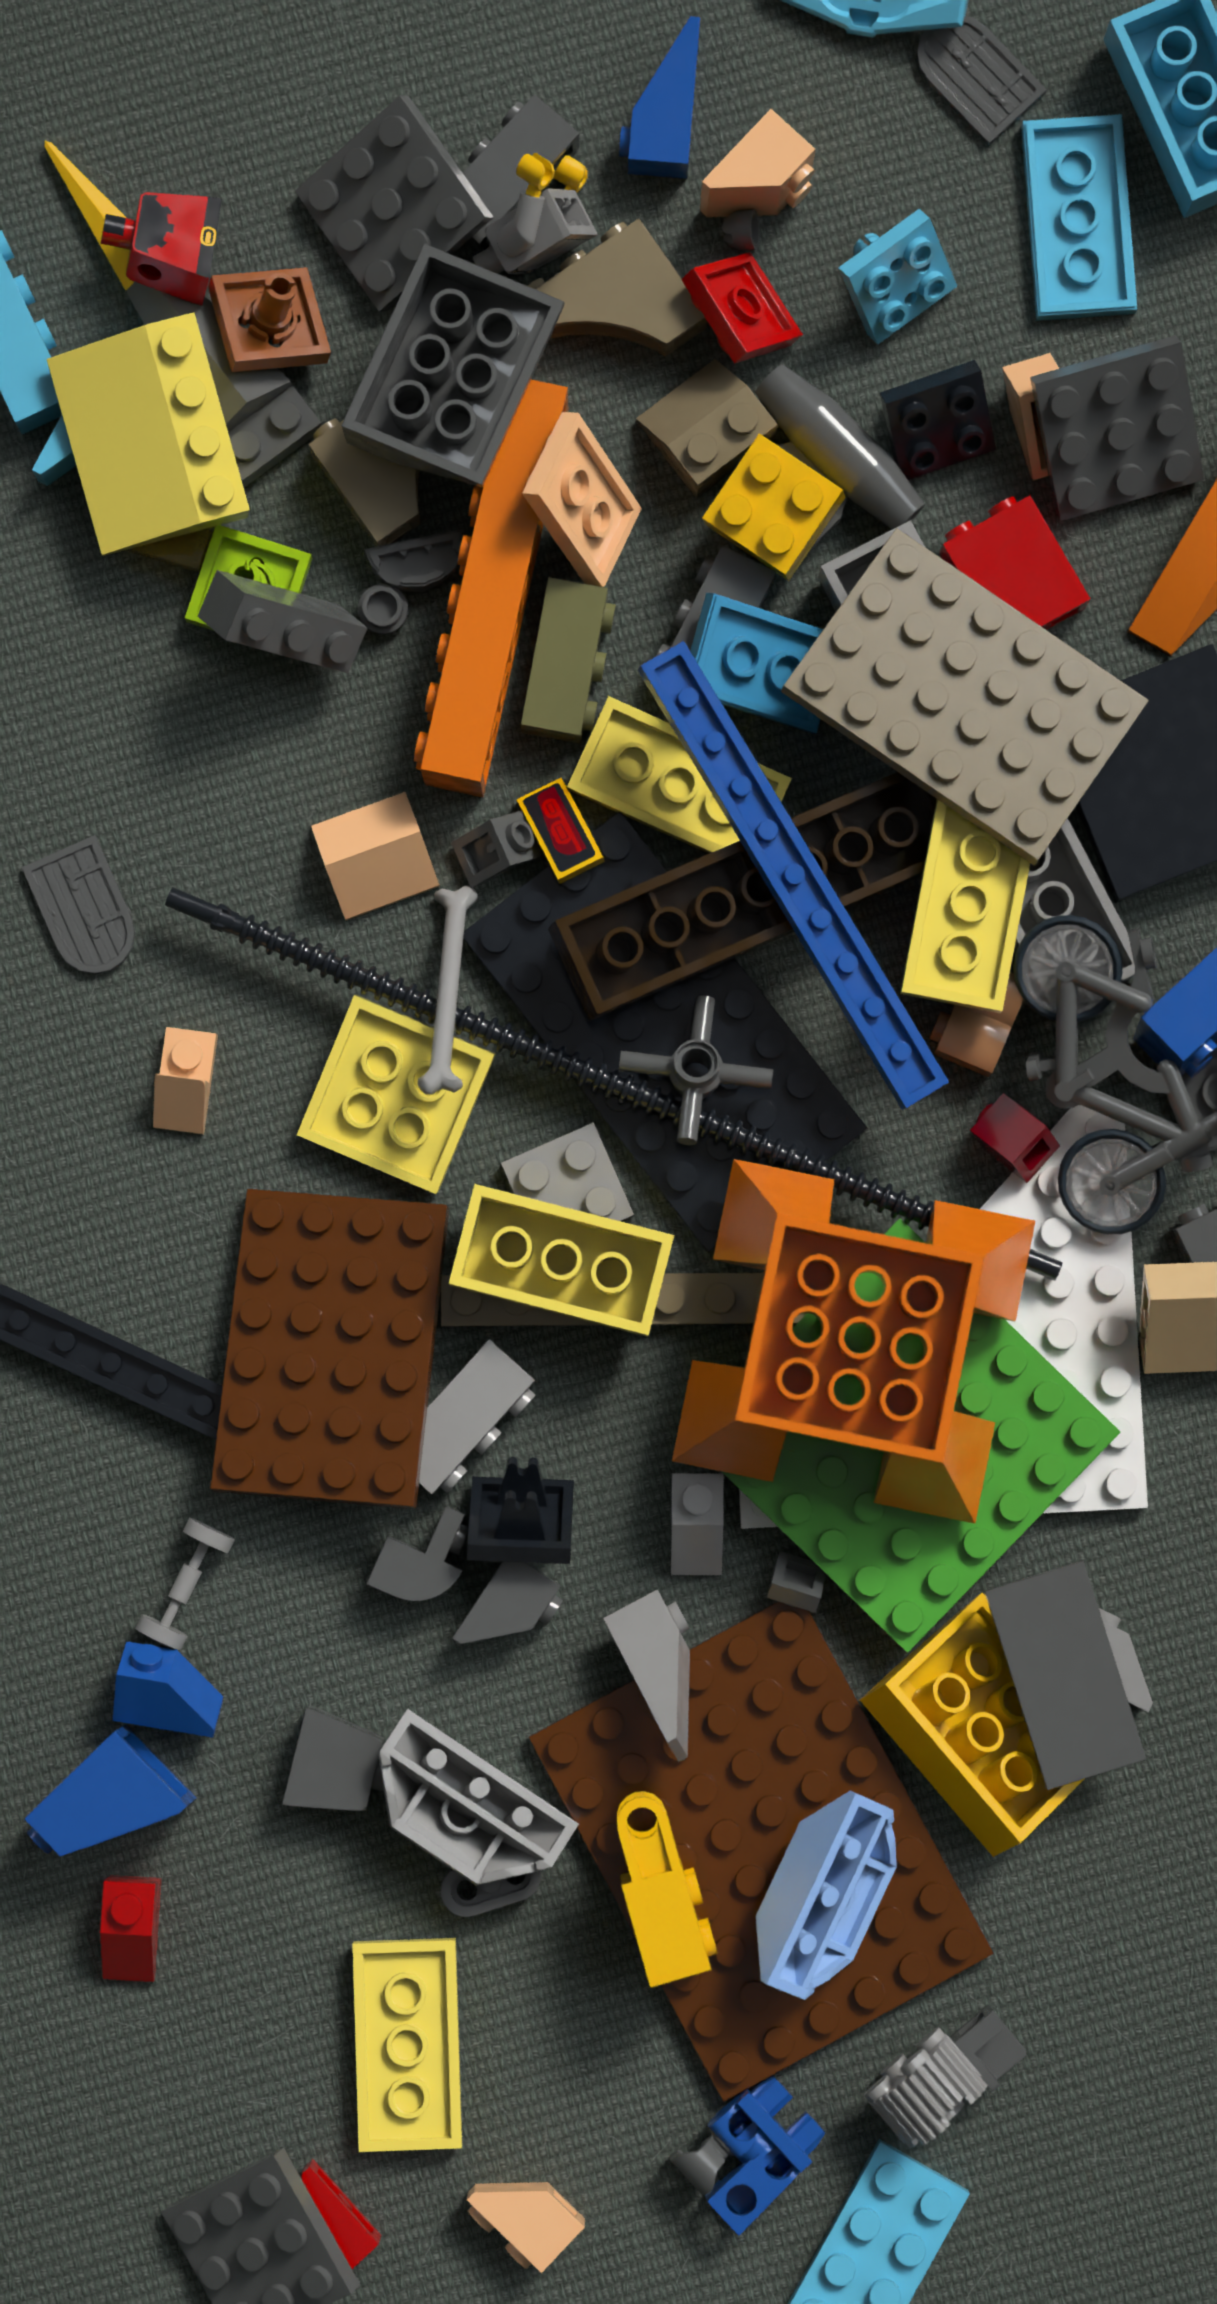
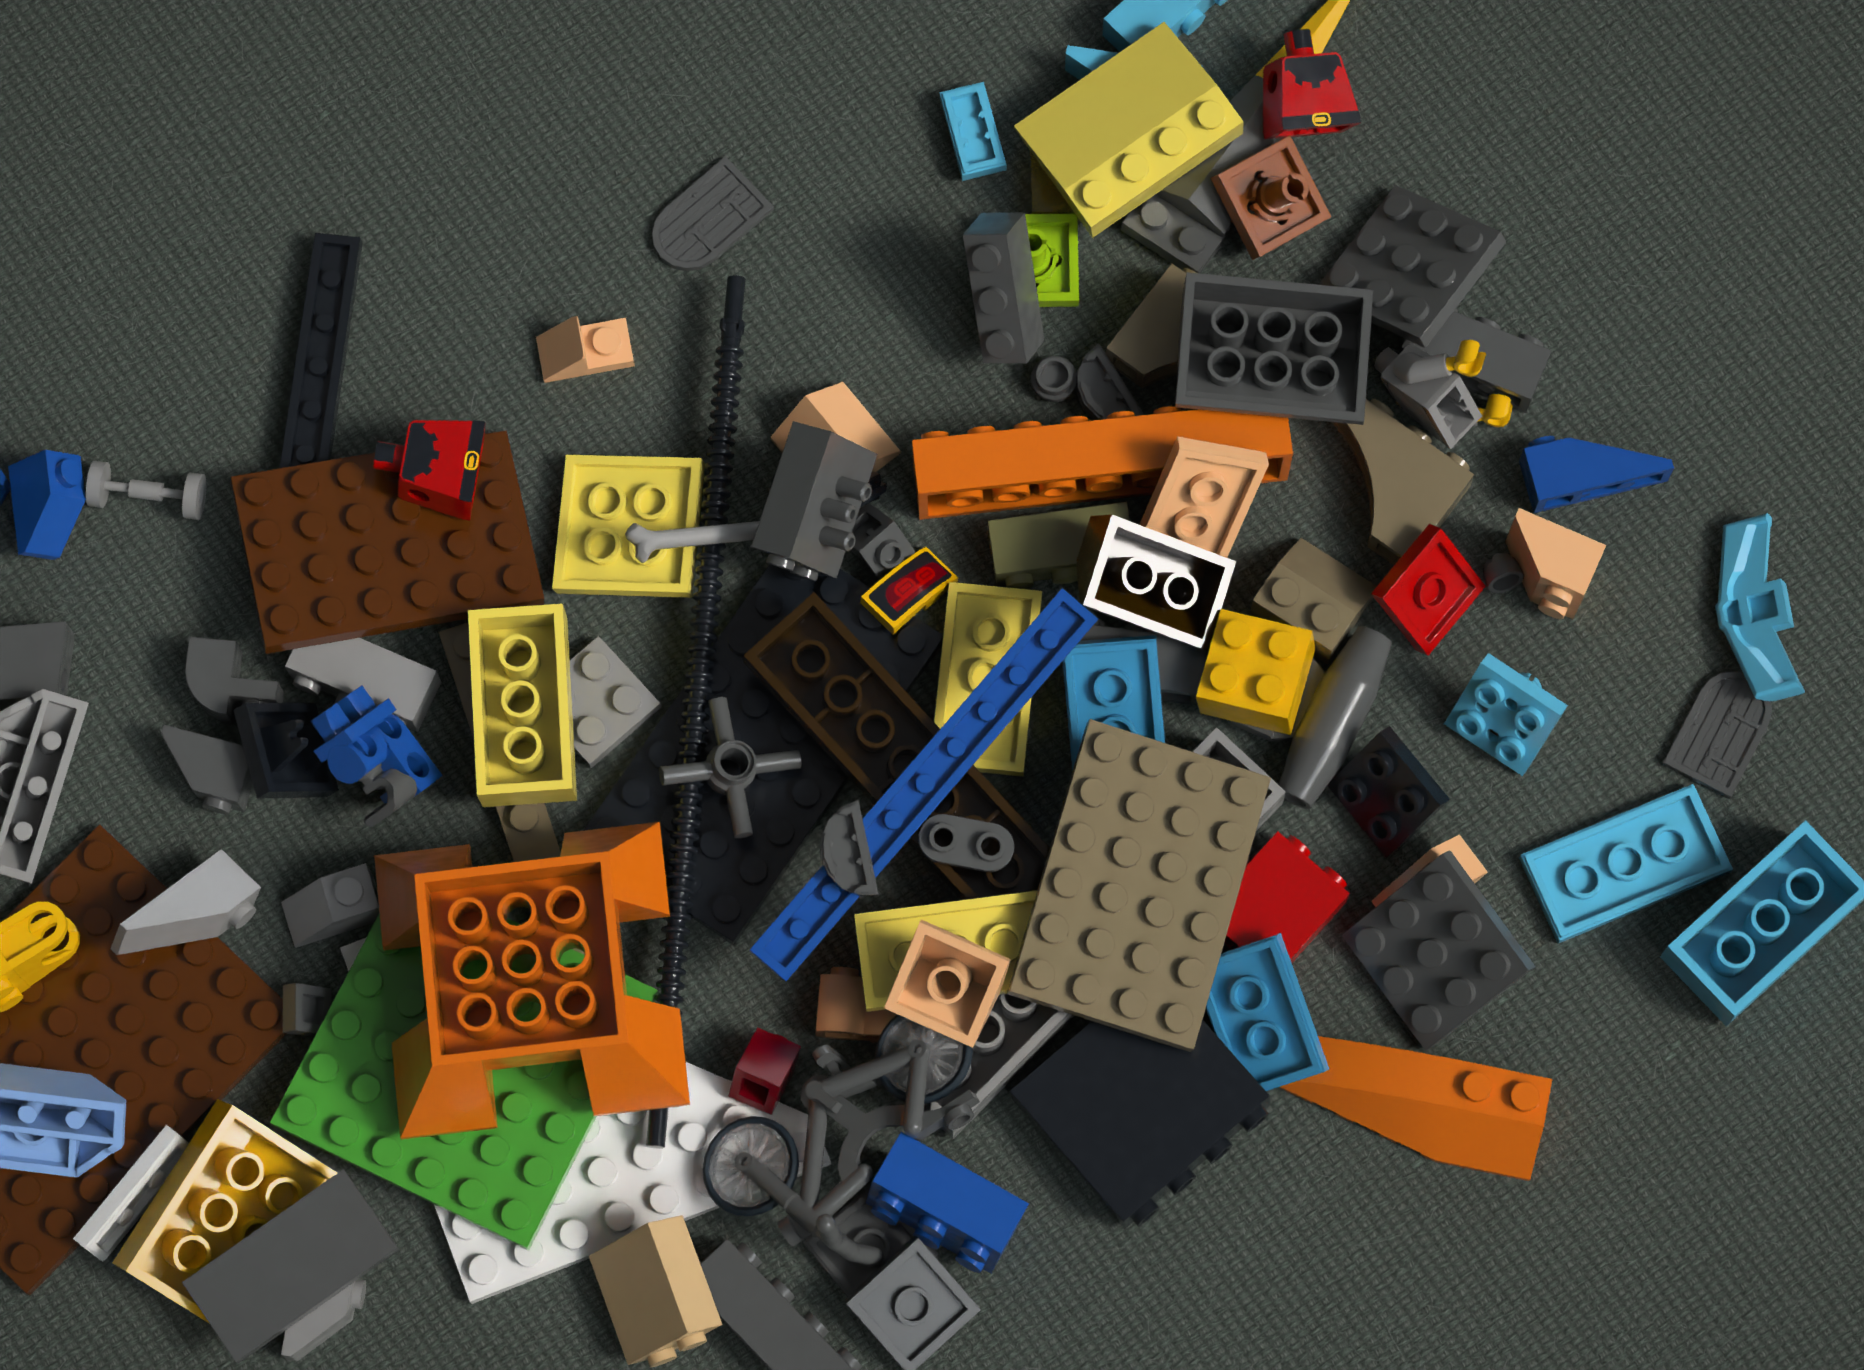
camera: 75 degrees right, 10 degrees down
(85, 601) = (973, 131): none -> medium azure plate
(273, 1268) = (436, 464): none -> red torso
(454, 889) = (816, 502): none -> dark grey piece
(558, 1427) = (374, 748): none -> blue hips
(650, 578) = (1152, 580): none -> dark brown slope
(842, 974) = (847, 853): none -> dark grey plate
(863, 853) = (966, 843): none -> dark grey plate
(930, 1814) = (131, 1195): none -> white tile
(1015, 919) = (947, 983): none -> light nougat slope
(1126, 620) = (1263, 1014): none -> dark azure tile

